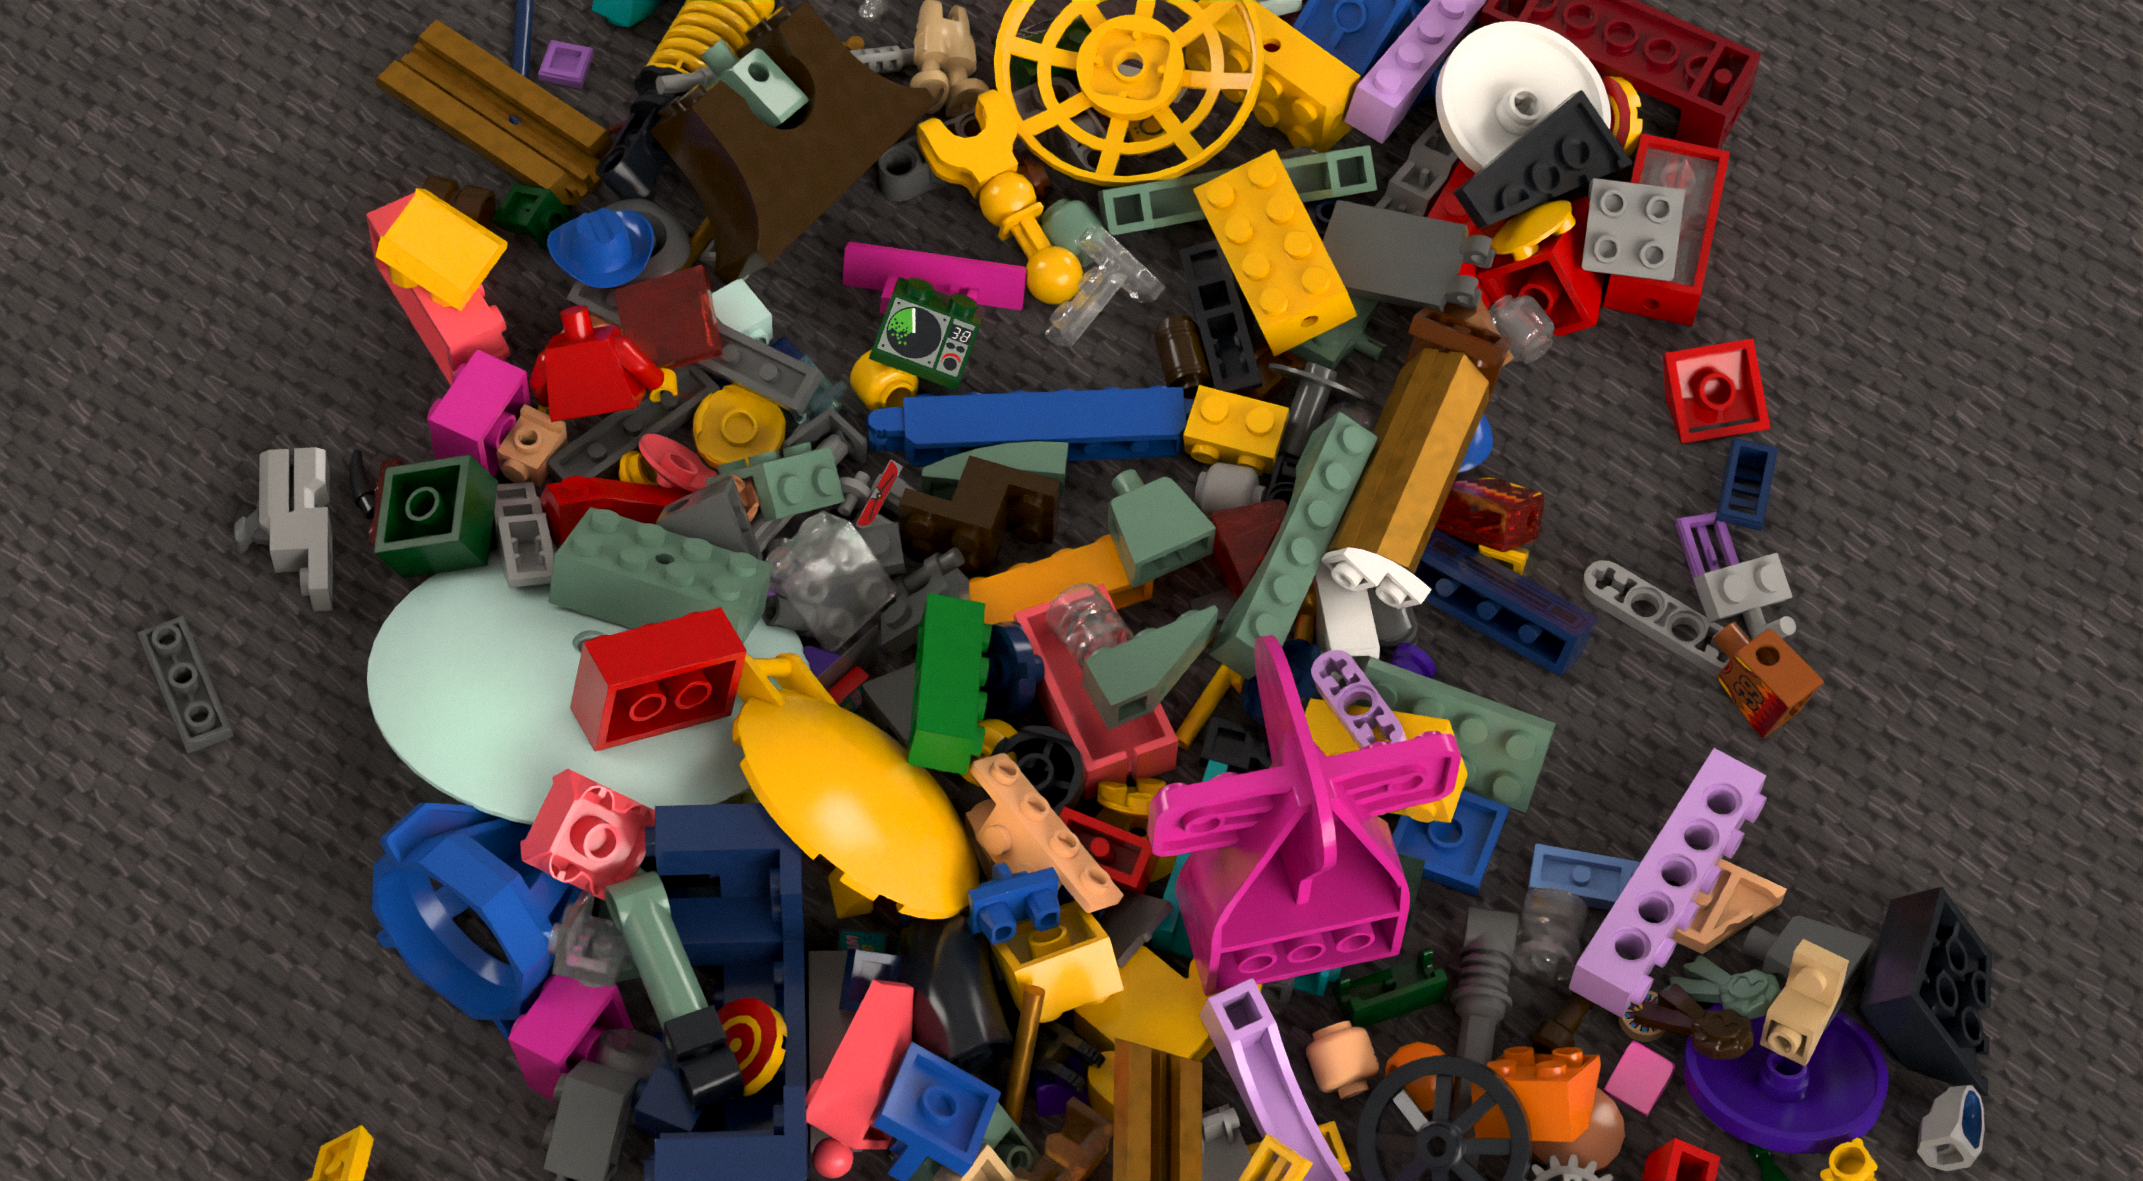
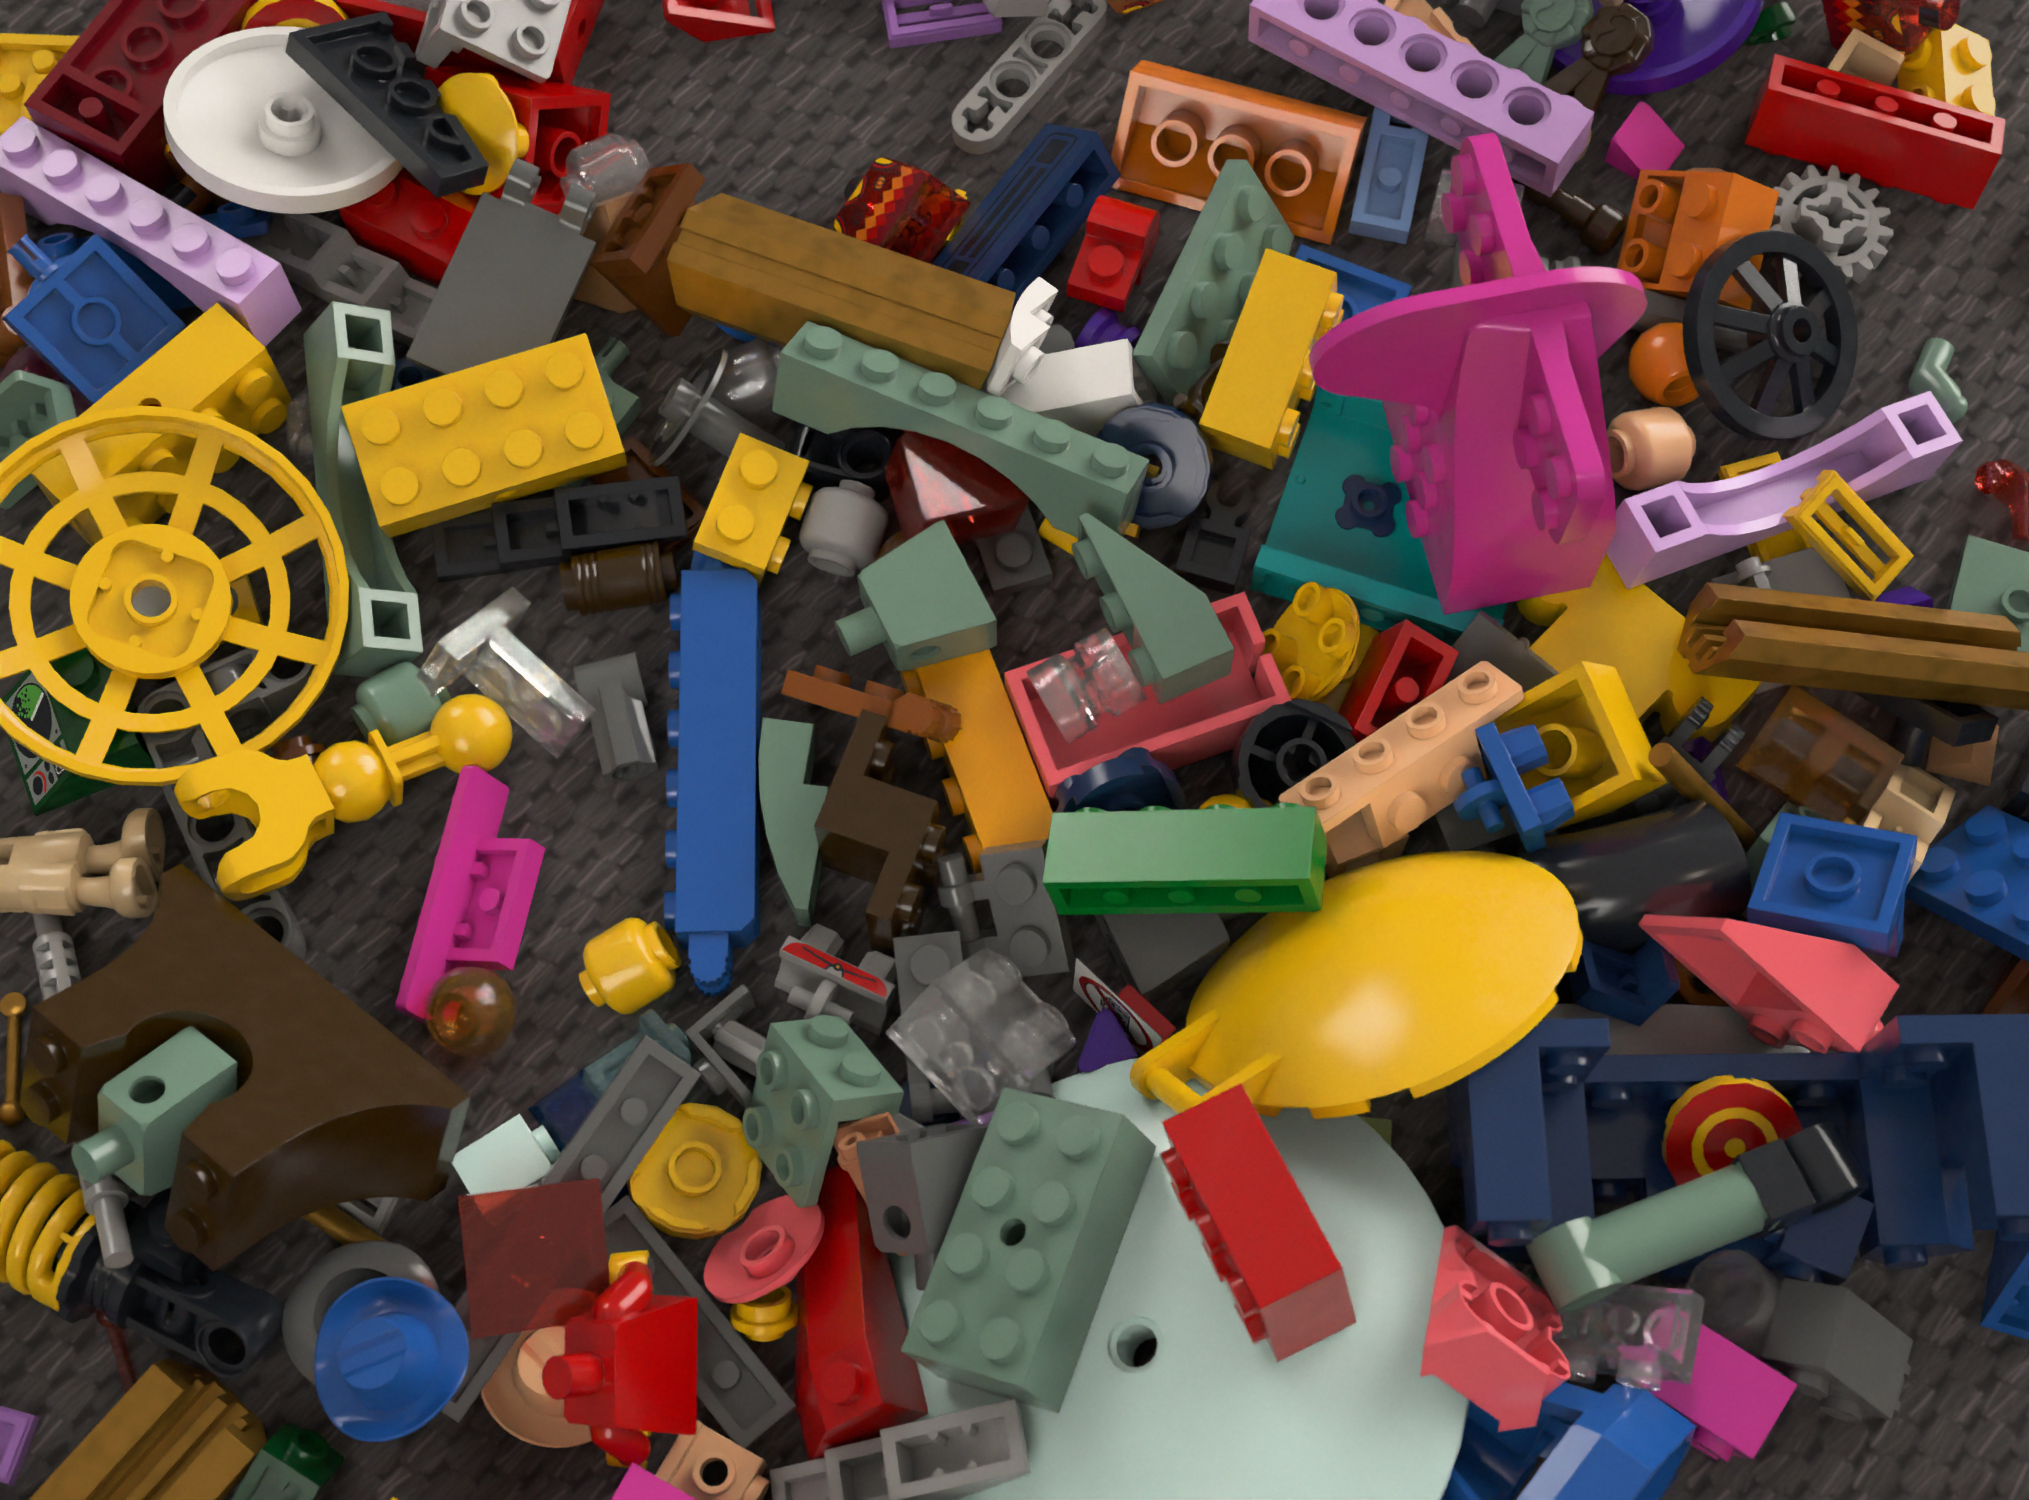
camera: 85 degrees left, 10 degrees up
(847, 287) = (472, 1005): none -> clear orange piece
(927, 332) = (574, 895): slope -> none
(1080, 508) = (903, 712): none -> dark orange hinge
(1087, 362) = (620, 721): none -> dark grey piece
(1357, 689) = (1243, 327): lavender beam -> none
(1492, 665) = (1113, 252): none -> red brick
(1599, 761) = (1186, 125): none -> orange slope

